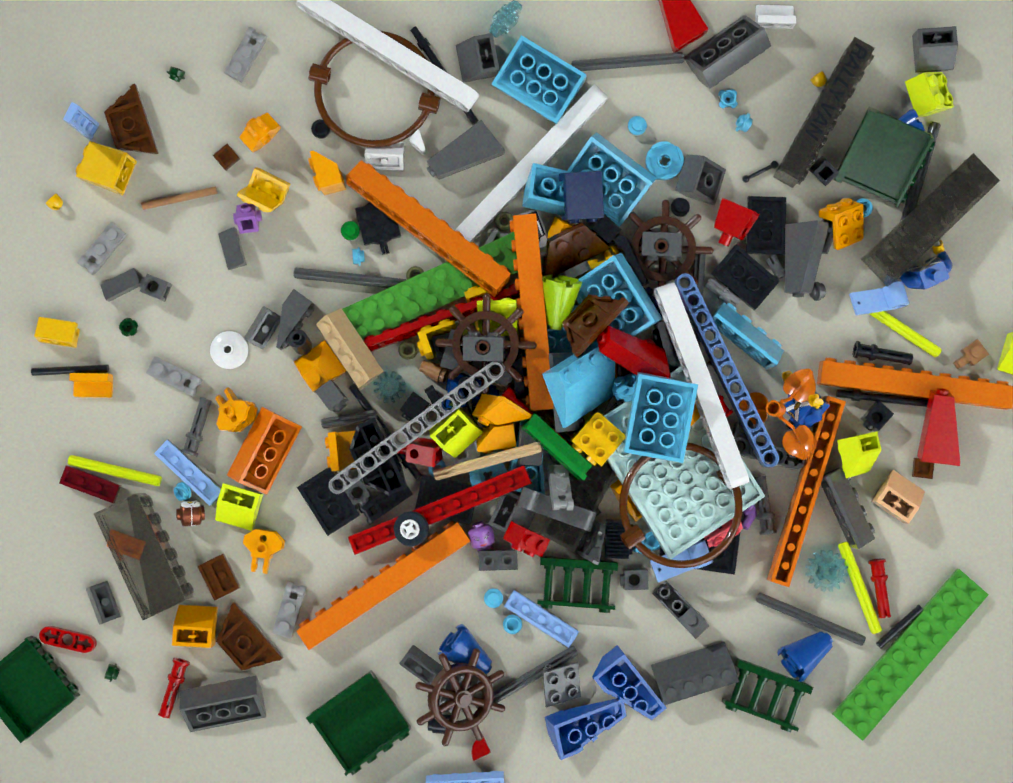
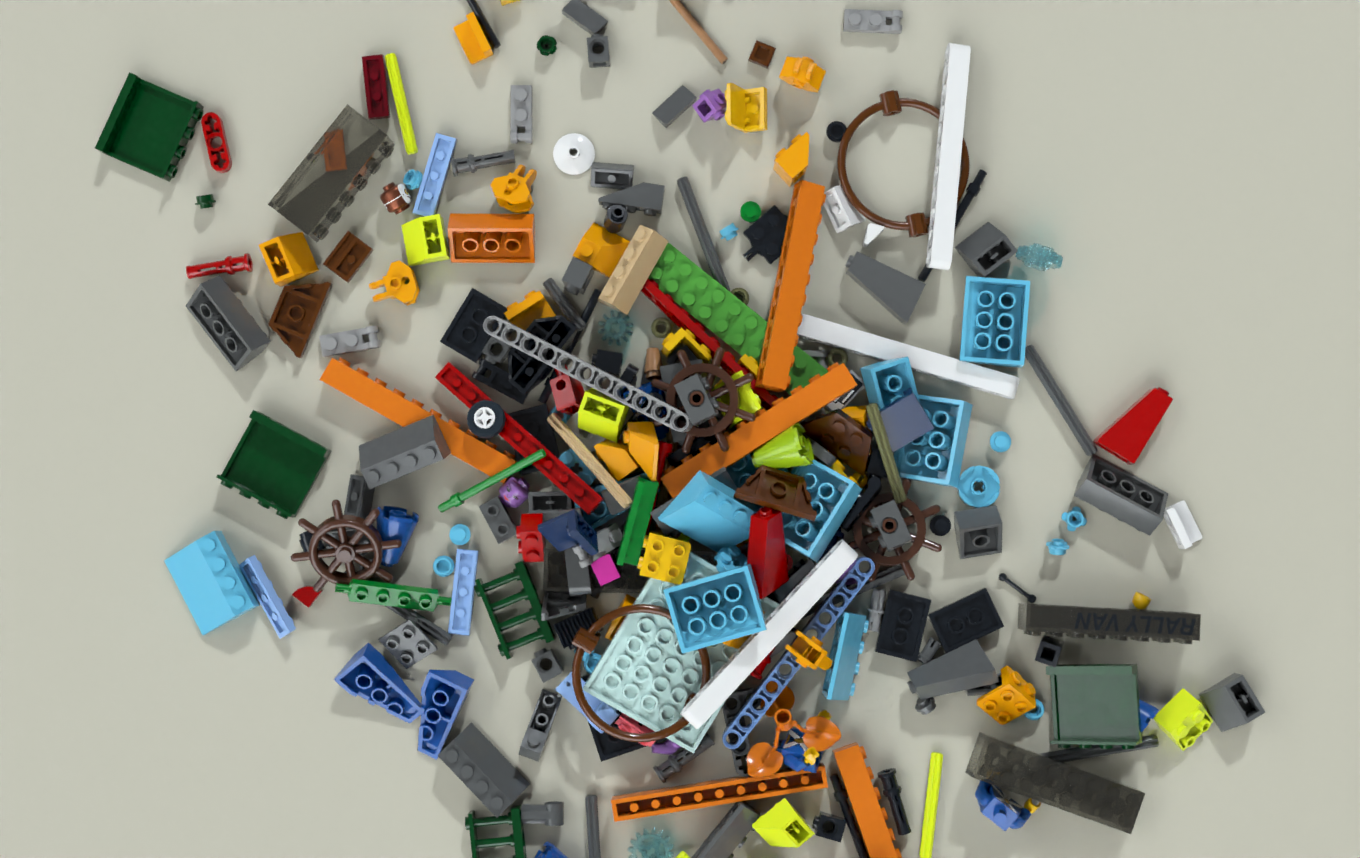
camera: 65 degrees right, 0 degrees up
(103, 602) = (268, 158): dark grey slope -> none
(403, 611) = (402, 452): none -> dark grey slope
(463, 584) = (459, 498): none -> green bar
(516, 677) = (393, 595): none -> green plate
(538, 504) = (569, 531): none -> dark blue bracket
(583, 492) = (605, 569): none -> dark pink panel
(601, 219) = (886, 452): none -> olive axle
(731, 360) = (809, 652): none -> light orange hinge
(733, 221) = (952, 585): red torso -> none
(755, 638) = (549, 813): none -> dark grey piece
(880, 299) = (948, 771): light blue door -> none

